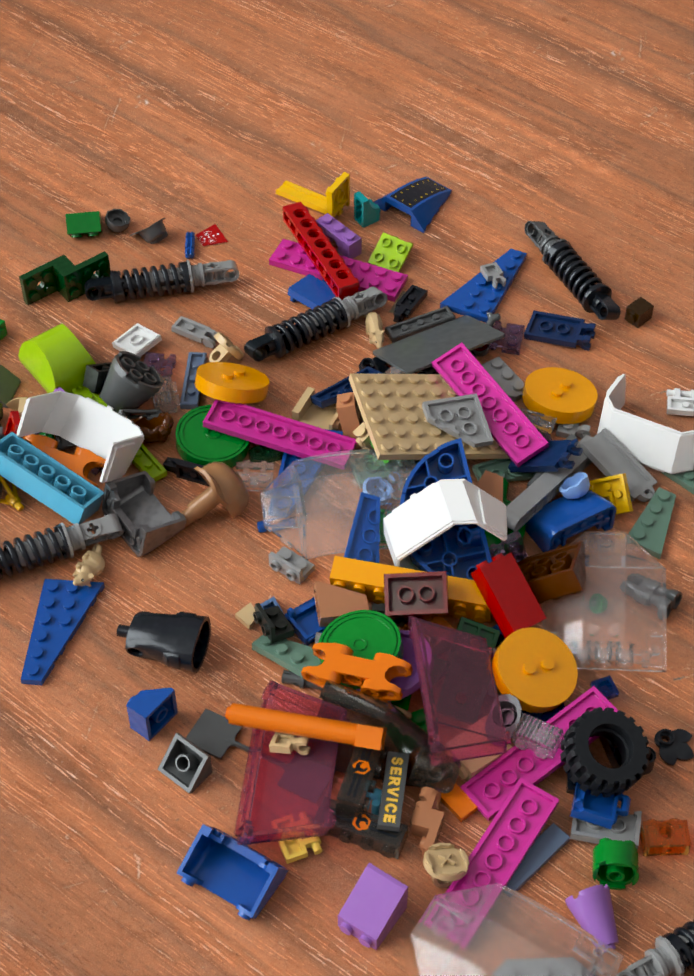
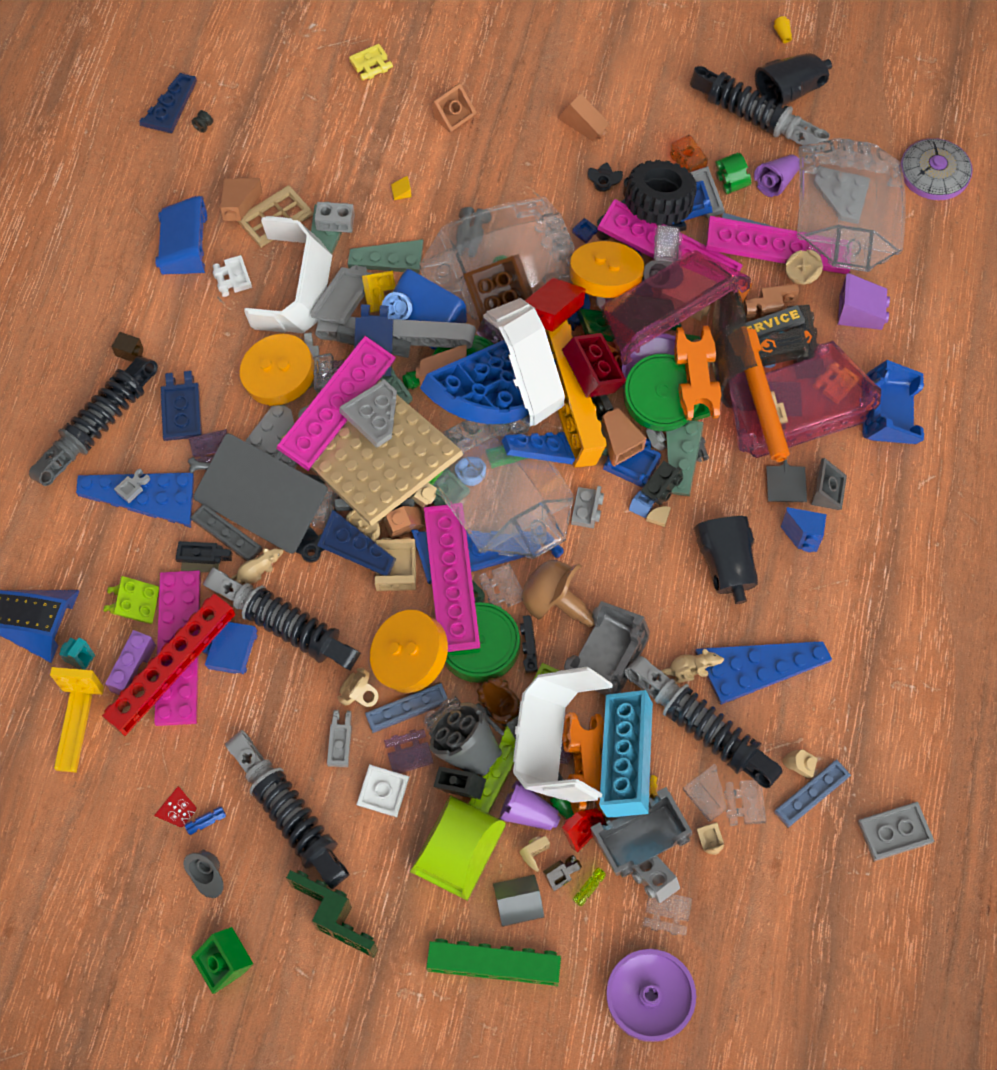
camera: 115 degrees left, 15 degrees up
(117, 220) = (203, 920): dark grey hair -> none

